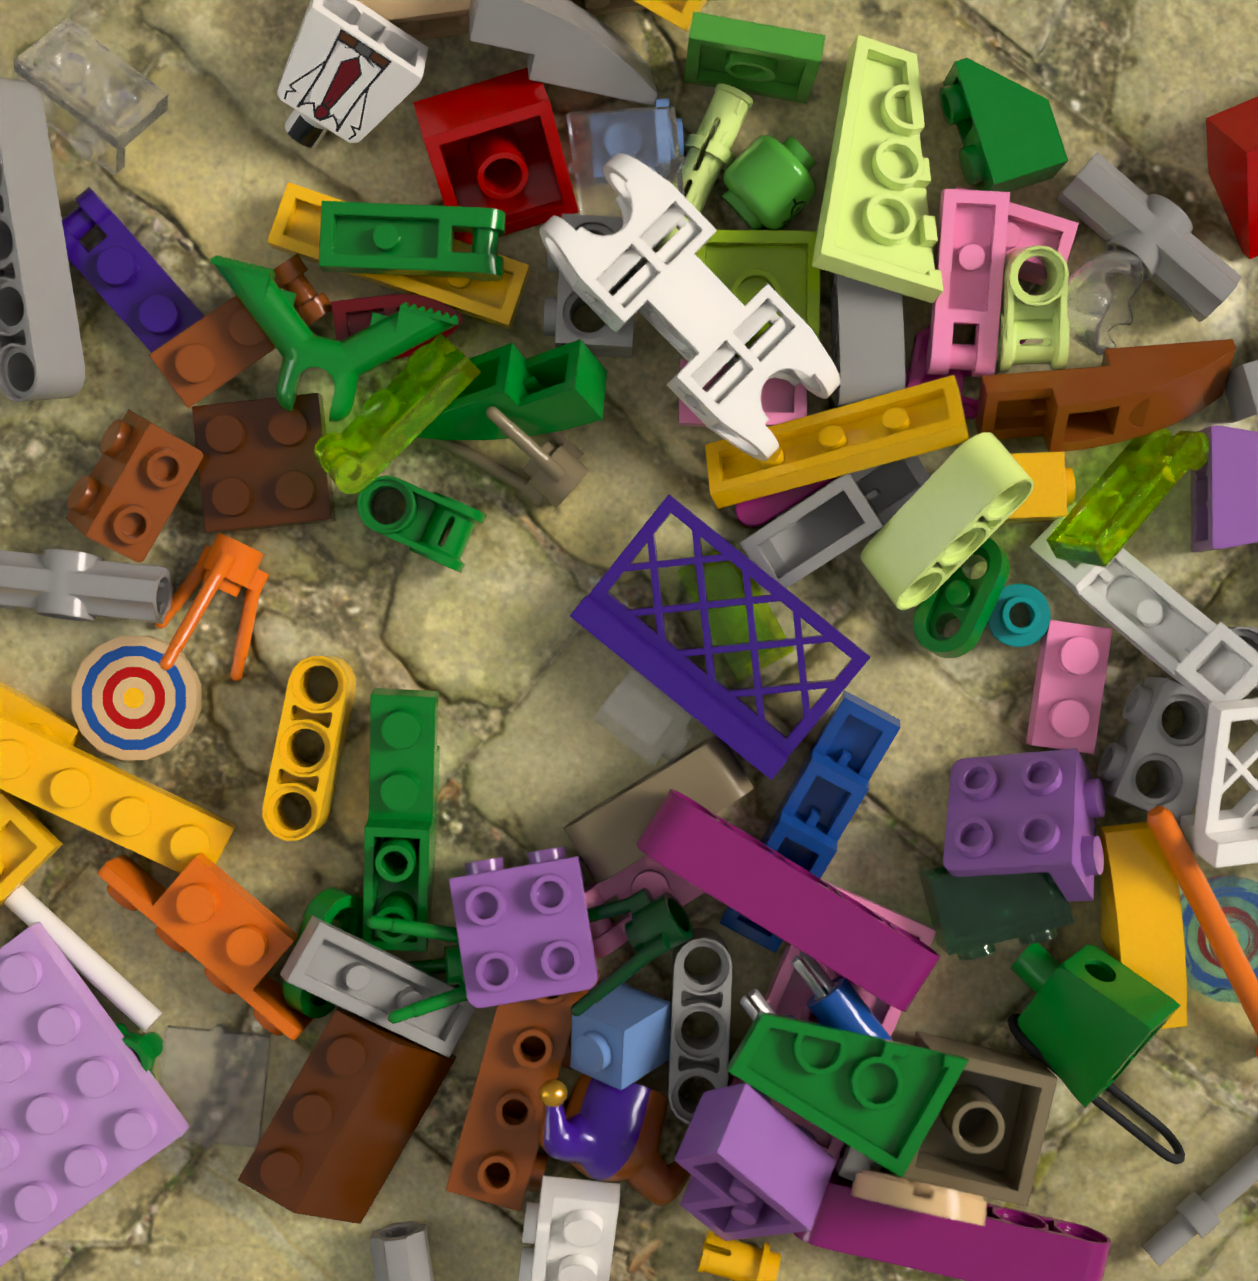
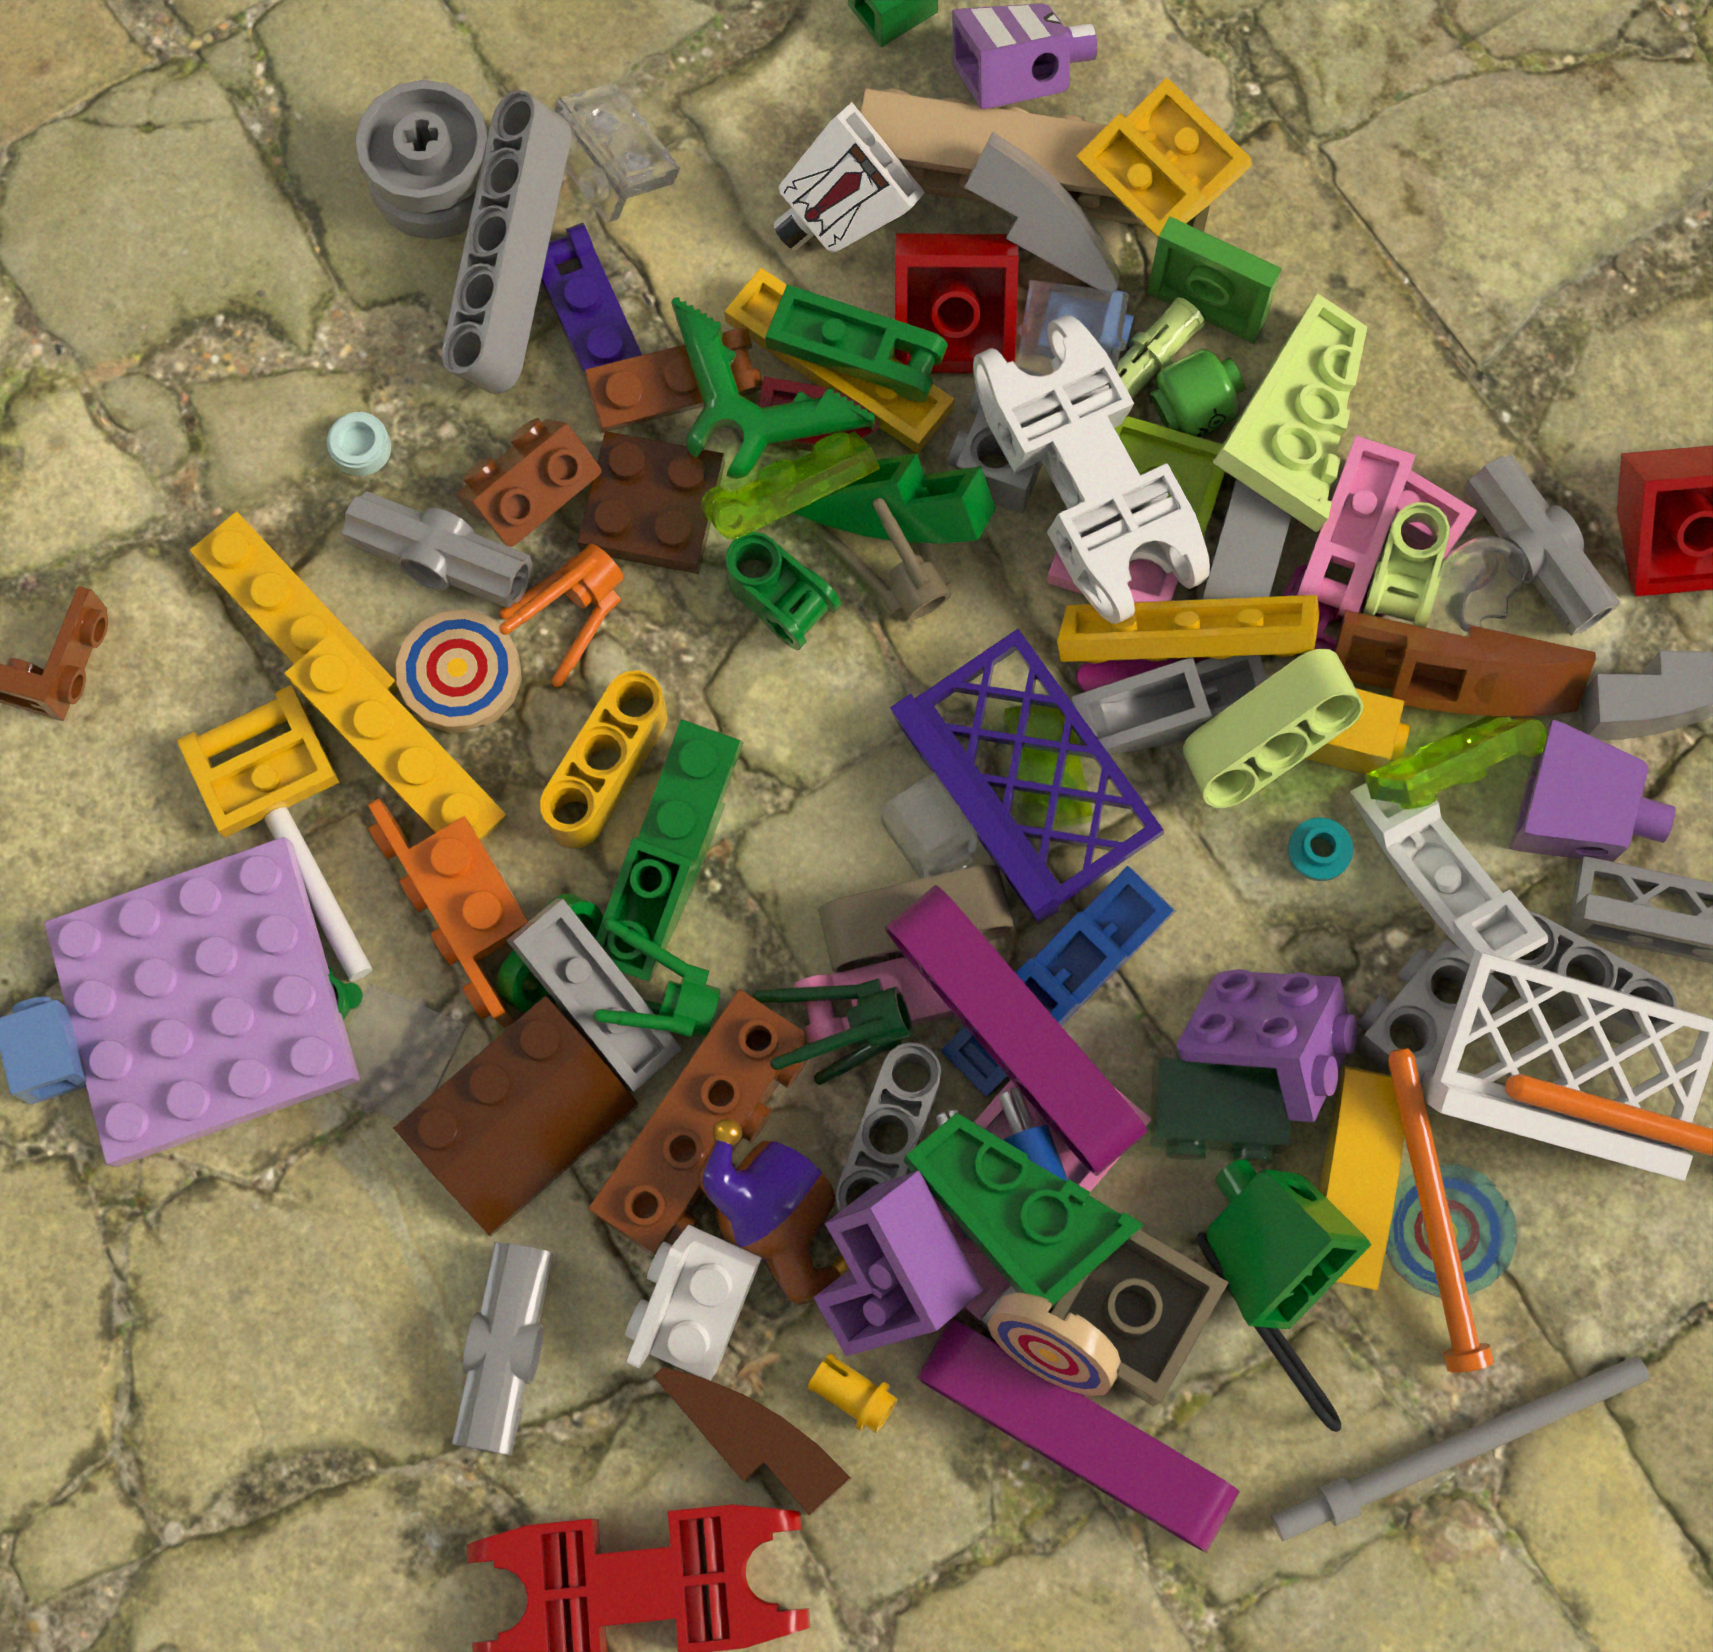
camera: 20 degrees right, 15 degrees down
(523, 929) = (750, 979): medium lavender bracket -> none
(621, 1037) = (809, 1114): medium blue brick -> none
(962, 599) = (1268, 819): green plate -> none
(1003, 129) = (1428, 410): green slope -> none
(1069, 686) = (1354, 929): bright pink plate -> none

